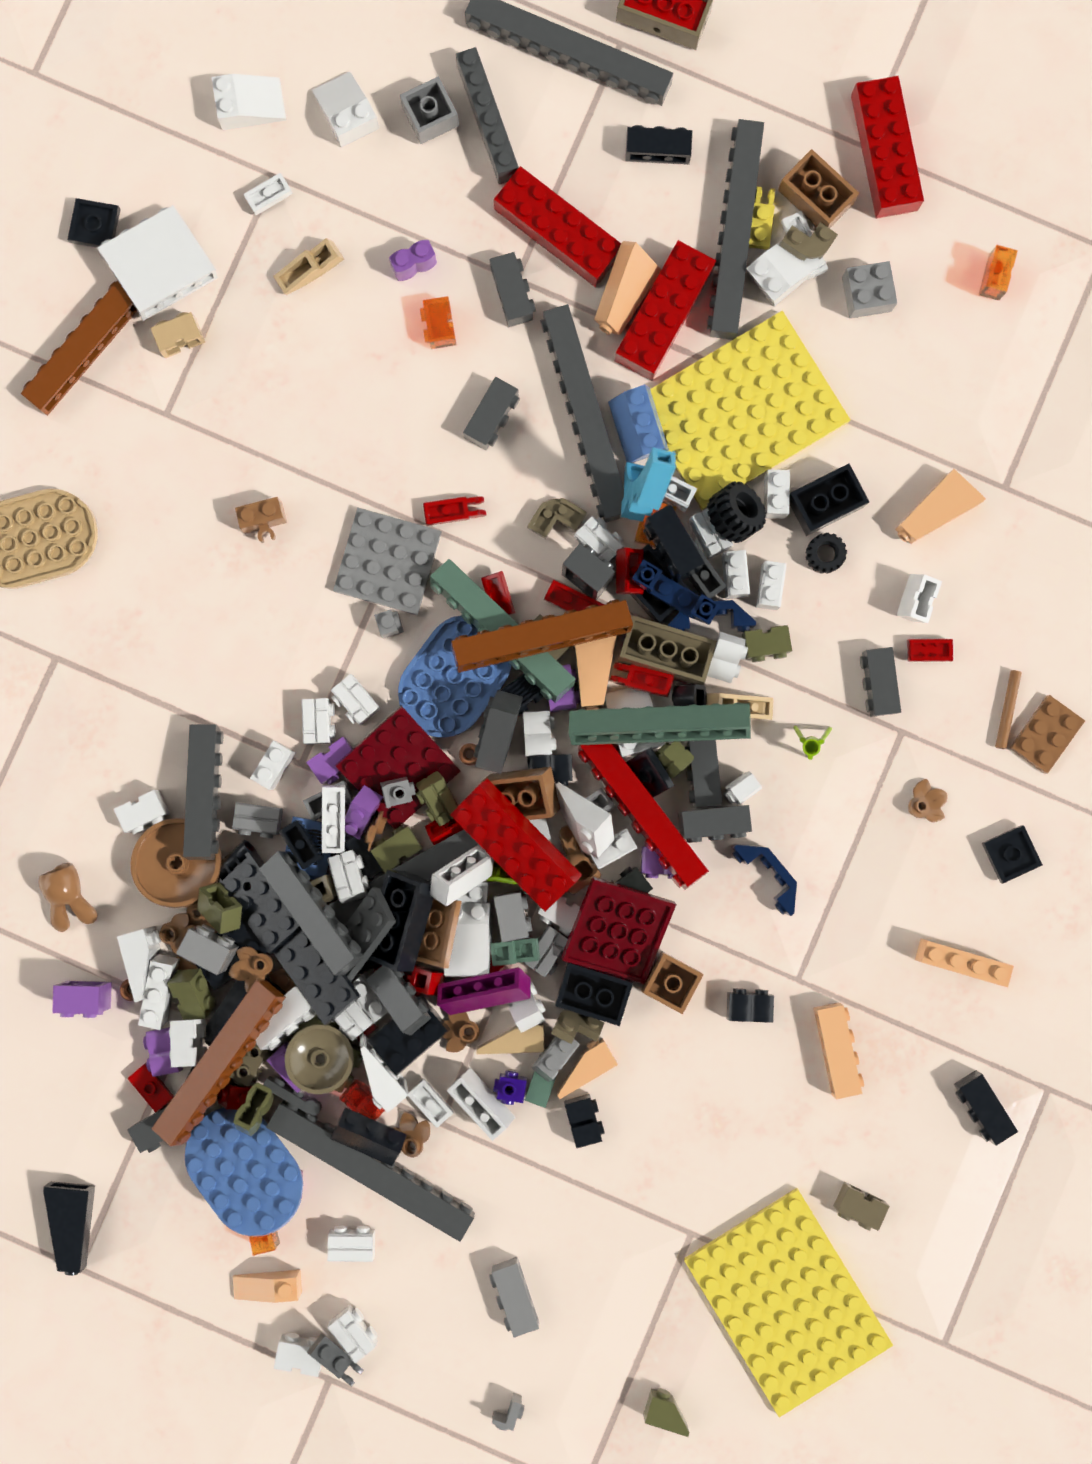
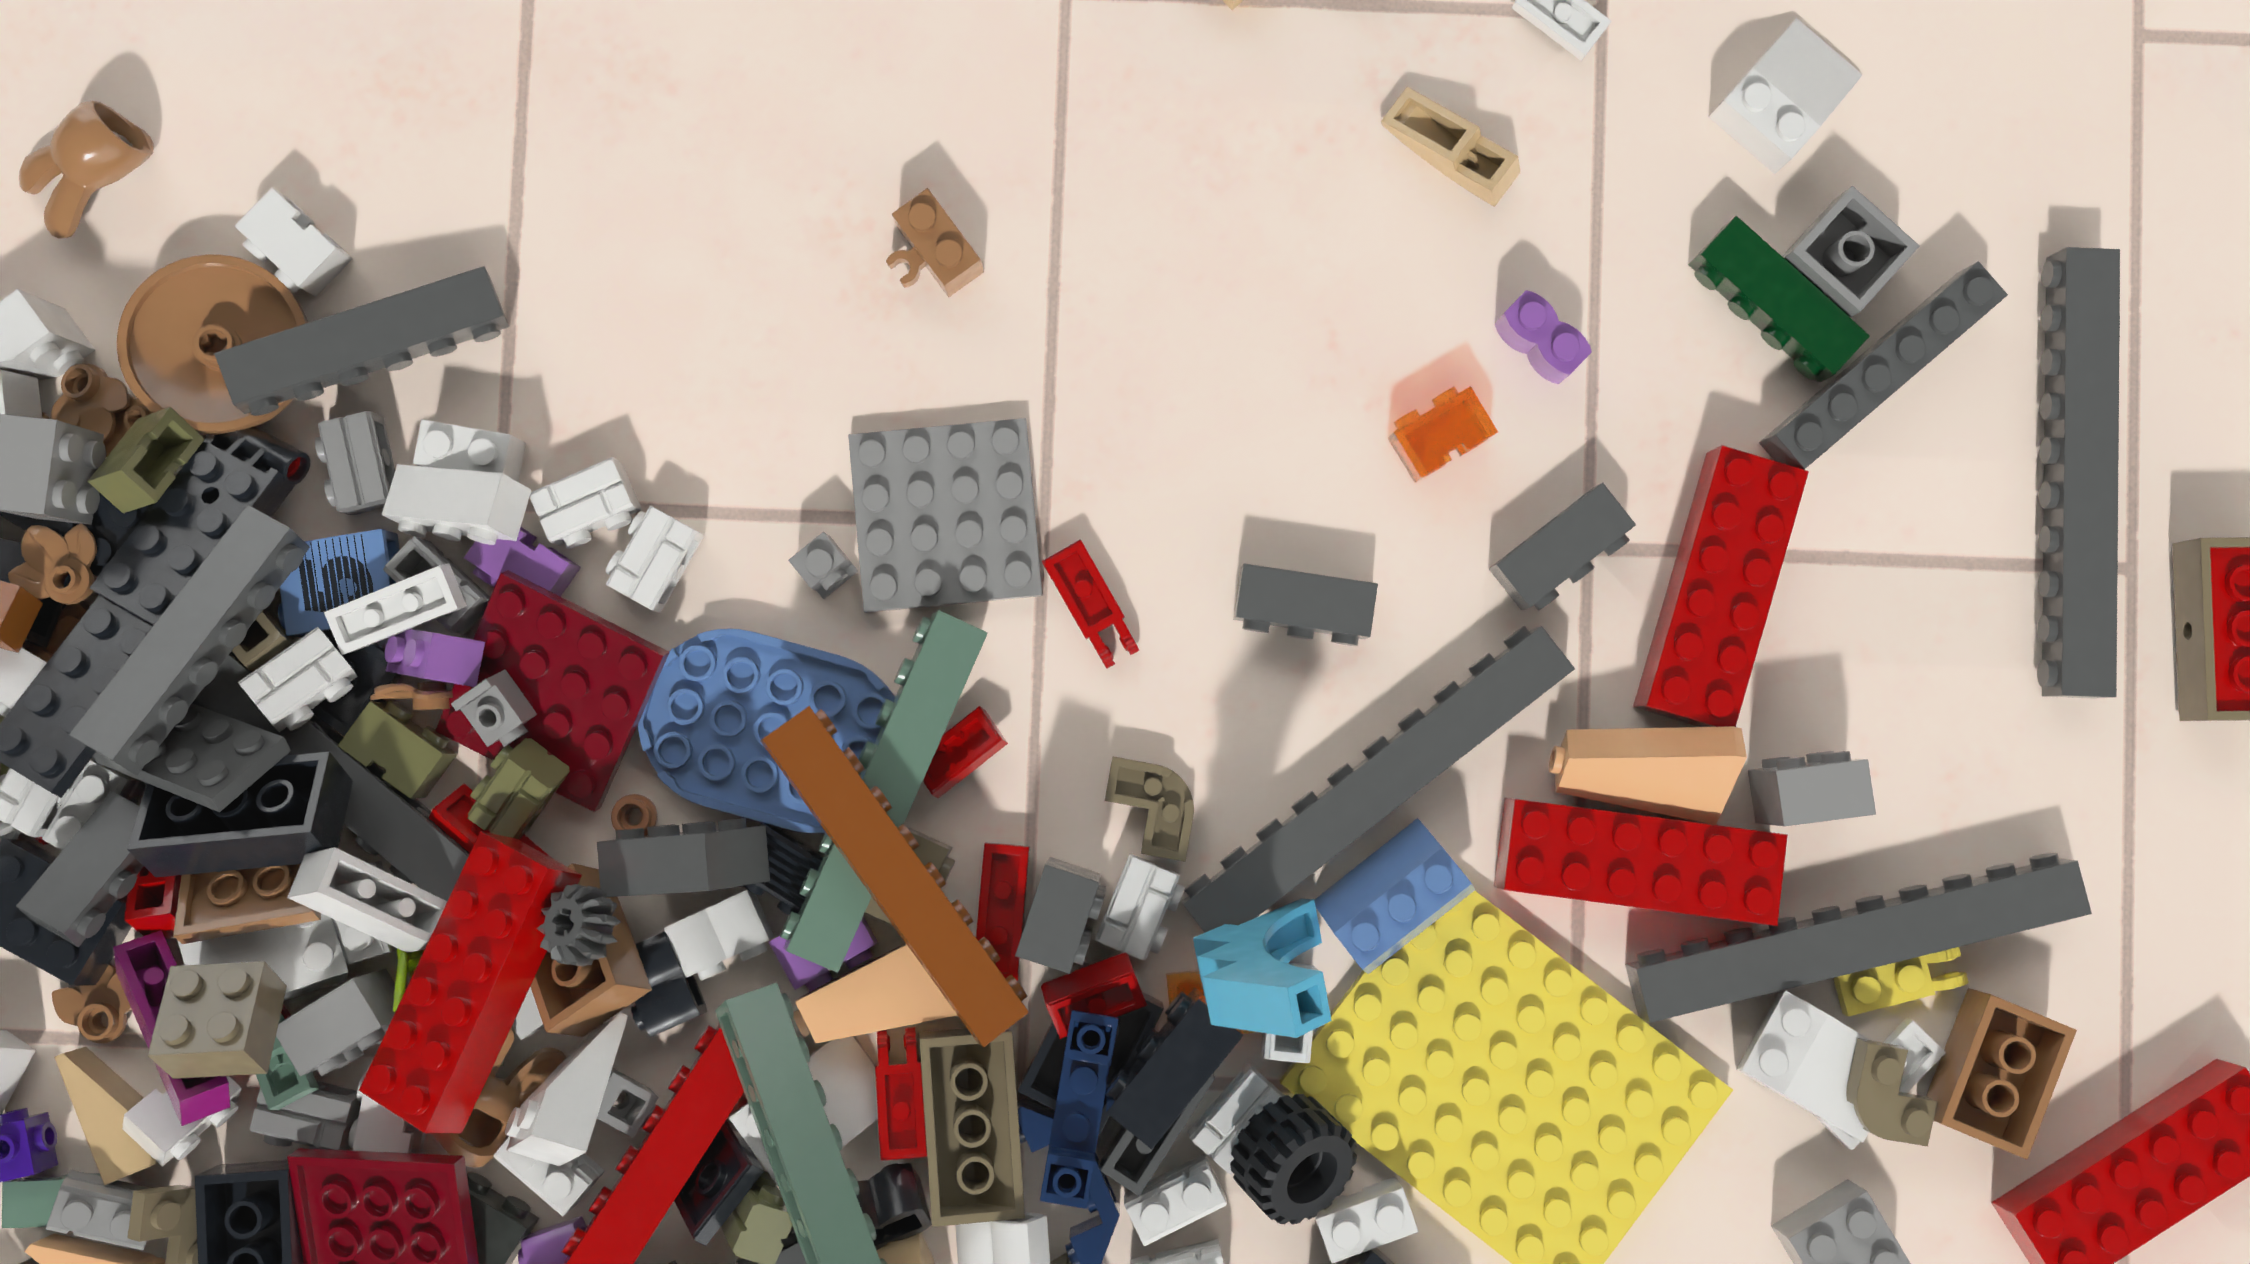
camera: 70 degrees right, 0 degrees up
(295, 776) = (456, 503): none -> white brick
(301, 844) = (322, 568): black brick -> none
(438, 149) = (1778, 301): none -> dark green brick
(488, 958) = (218, 1020): none -> dark tan brick
(514, 776) = (578, 925): none -> dark grey gear
(658, 145) = (1961, 722): black brick -> none
(661, 221) = (1812, 791): none -> light grey brick

